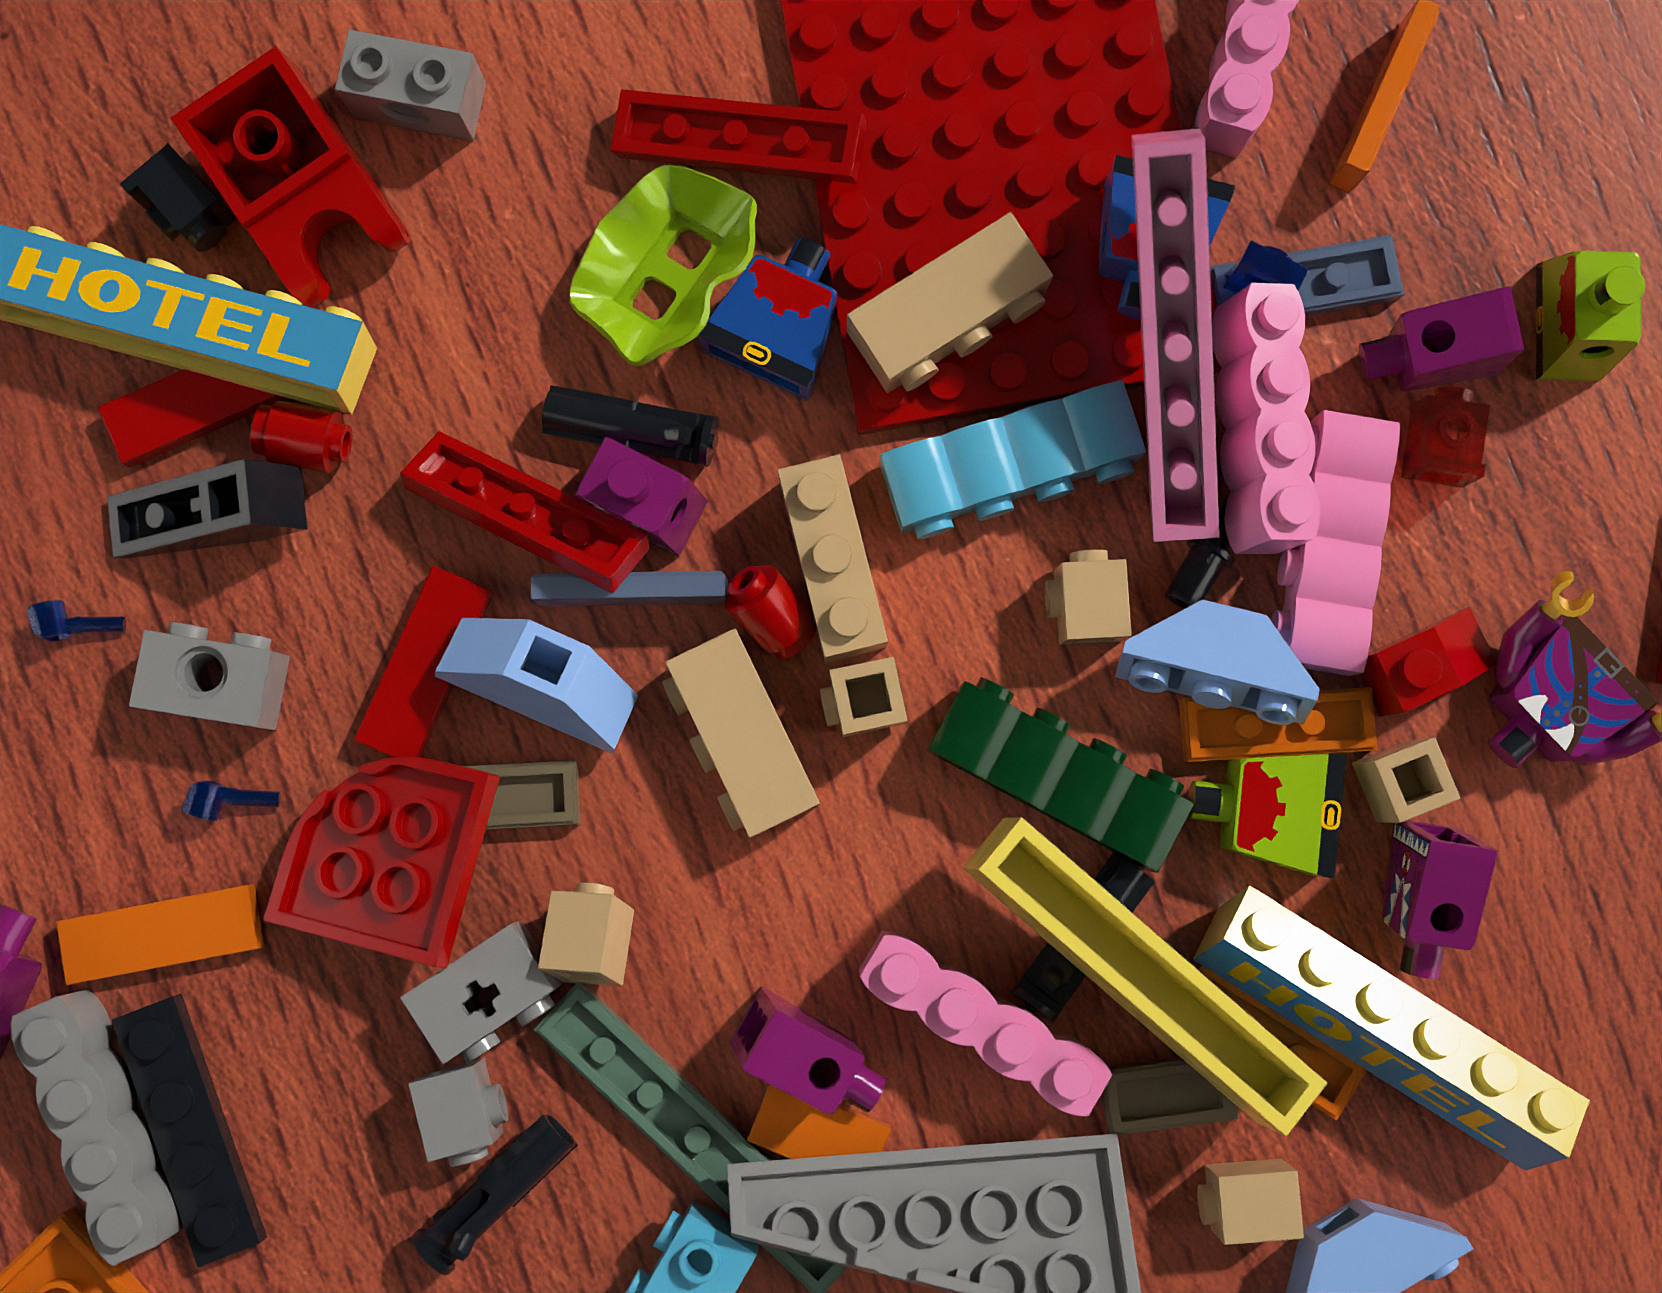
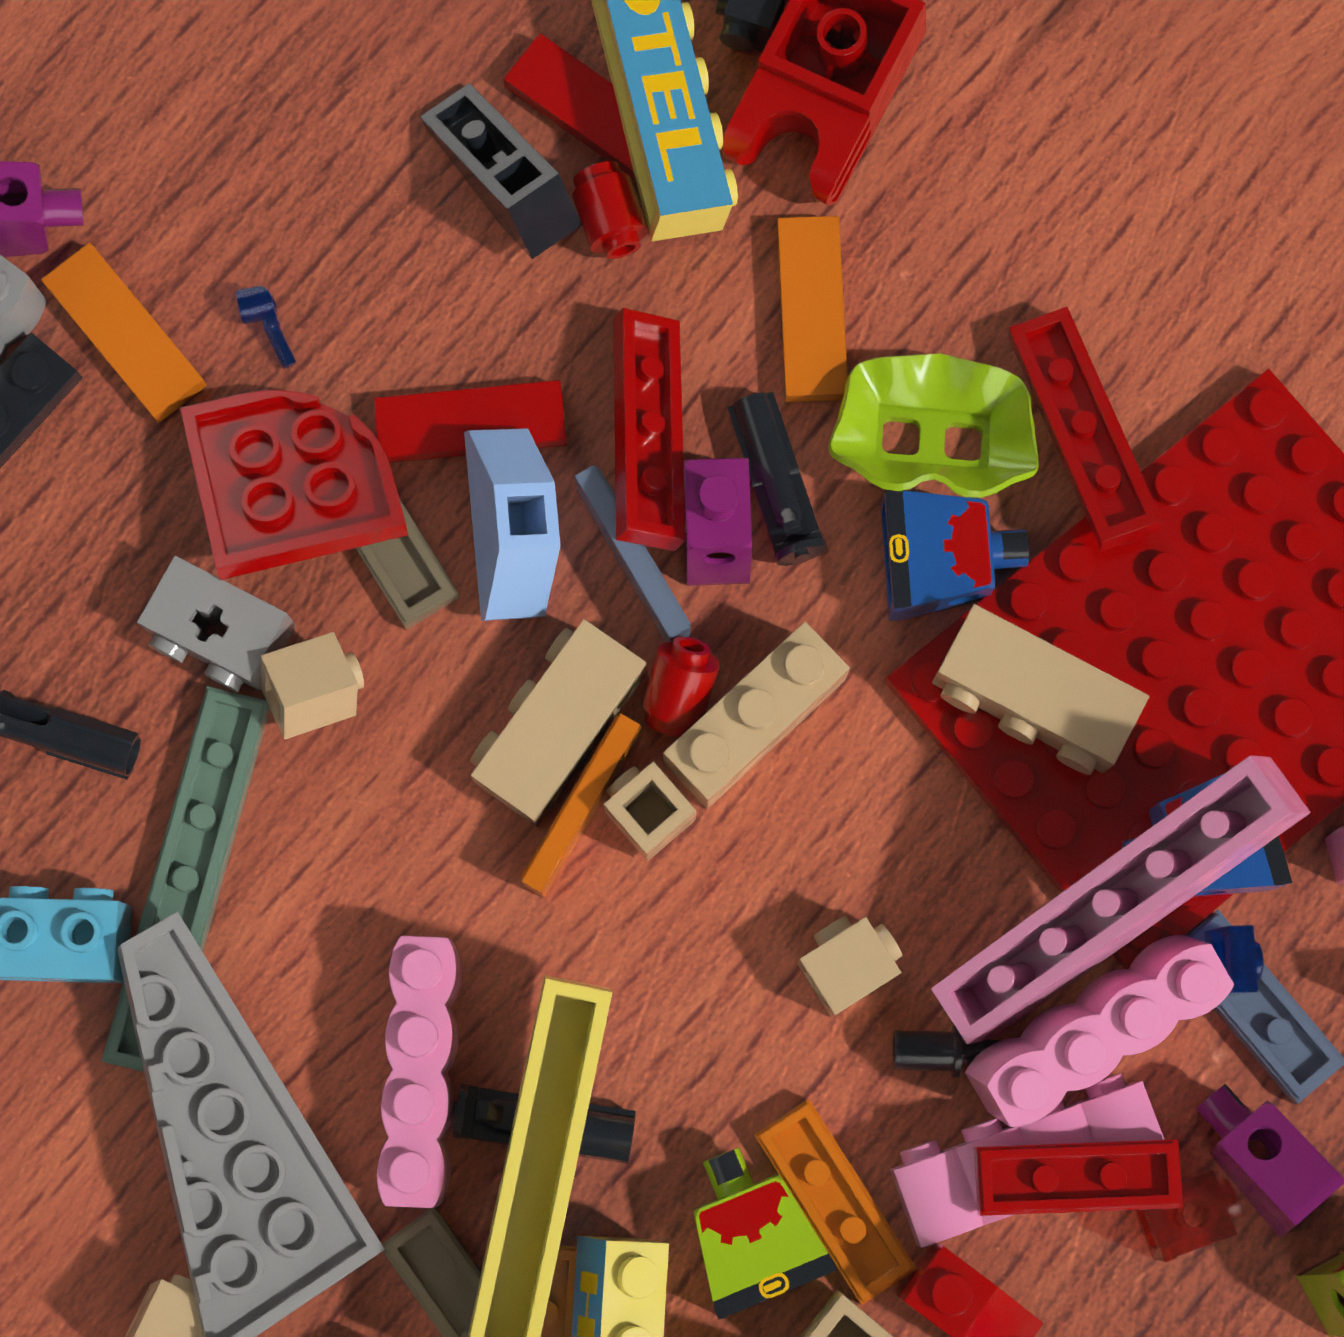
camera: 65 degrees right, 5 degrees down
(52, 624) = (336, 99): clear blue hand -> none
(171, 676) = (340, 222): light grey brick -> none
(411, 85) = (964, 131): light grey brick -> none
(459, 1112) = (103, 661): light grey brick -> none
(494, 310) = (812, 308): none -> orange tile
(783, 1043) = (312, 902): magenta torso -> none
(803, 1131) = (248, 966): orange tile -> none
(826, 754) = (581, 805): none -> orange tile
(1011, 458) = (938, 824): medium azure brick -> none
(1060, 776) = (676, 1023): dark green brick -> none
(1222, 661) = (858, 1108): light blue slope -> none
(1379, 508) = (1078, 1177): none -> red tile

